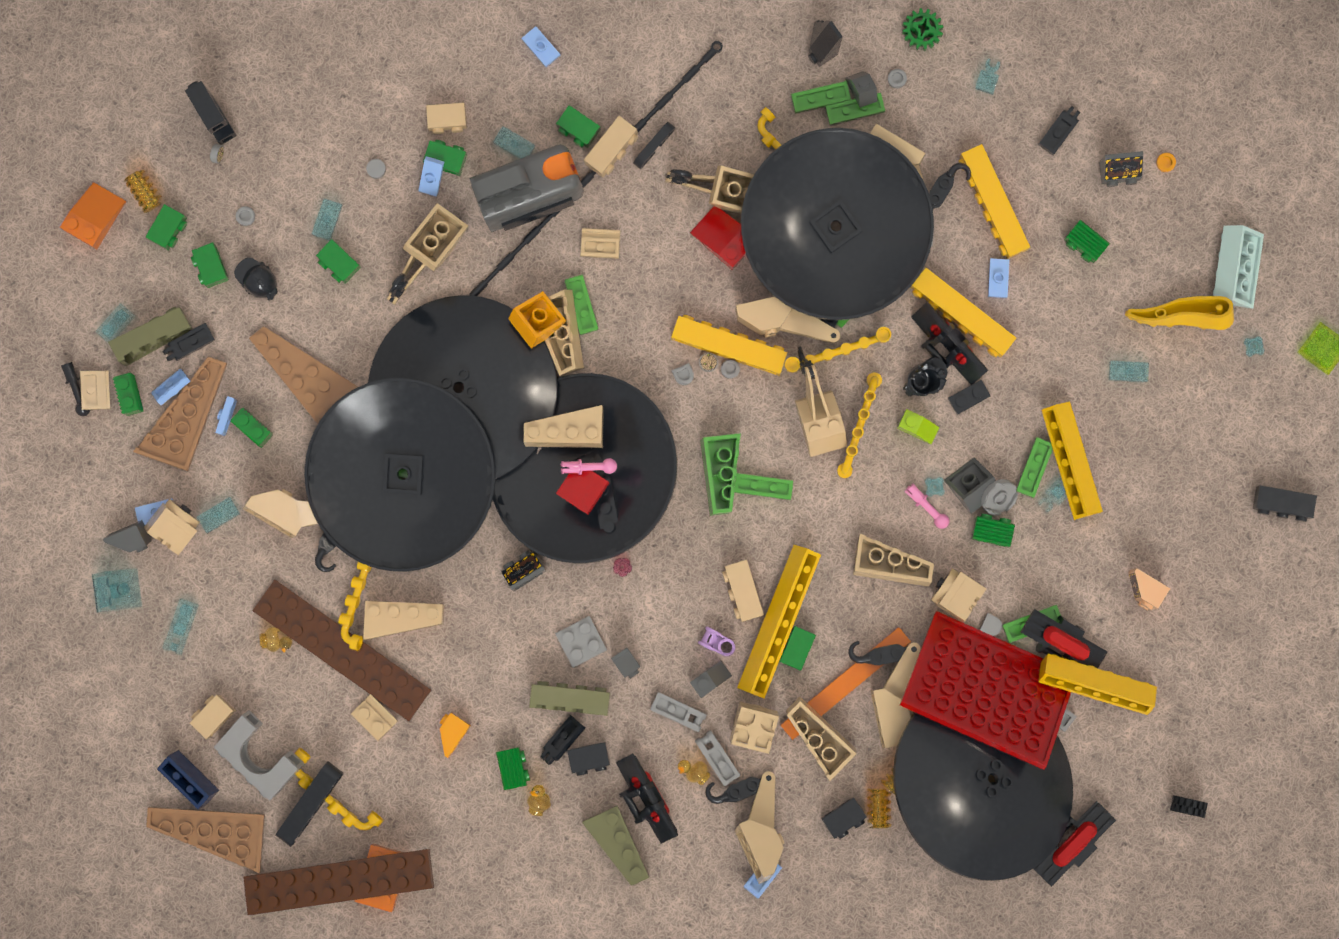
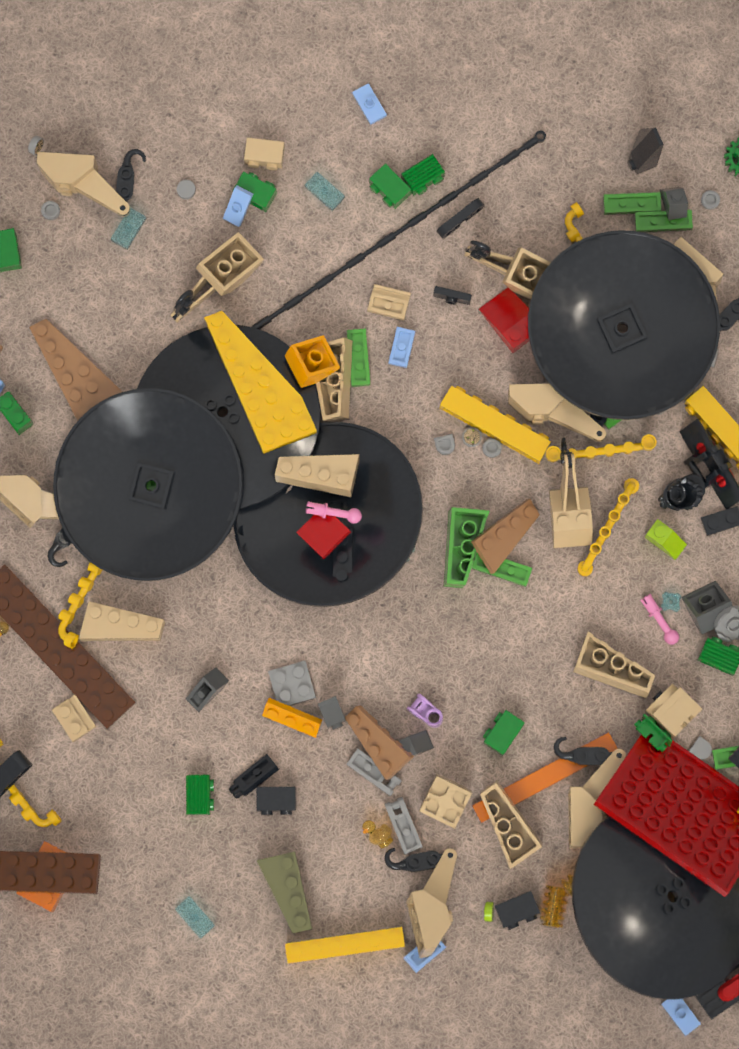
camera: 15 degrees right, 5 degrees down
(210, 112) = (37, 103): black arch -> none
(256, 278) = (48, 271): black hair -> none
(267, 175) = (79, 175): none -> tan slope
(338, 261) = (130, 270): green brick -> none
(452, 732) = (147, 747): light orange slope -> none
(499, 663) = (207, 689): none -> dark grey slope
(500, 365) = (266, 396): none -> yellow wing
(523, 570) = (249, 603): slope -> none
(527, 188) = (329, 234): dark grey piece -> none
(533, 888) = (195, 917): none -> clear light blue plate
(538, 801) = (218, 832): clear yellow animal -> none
(569, 699) = (269, 738): olive wedge -> none
(588, 674) = (292, 717): none -> light orange plate
(609, 108) = (423, 175): none -> green brick
(611, 147) = (418, 211): tan brick -> none
(617, 567) = (342, 619): clear pink plate -> none
(622, 286) = (401, 347): none -> light blue plate
(655, 809) = (332, 863): black piece -> none
(661, 226) = (452, 296): none -> black plate
(683, 689) = (382, 748): none -> medium nougat wing
(683, 886) = (344, 945): none -> yellow brick
(742, 591) = (461, 666): tan brick -> none
(756, 459) = (504, 535): none -> medium nougat wing
(779, 621) = (490, 702): yellow brick -> none
(816, 823) = (488, 911): none -> lime tile
(937, 615) = (649, 726): none -> green hinge
(1022, 888) = (681, 1015): none -> light blue plate

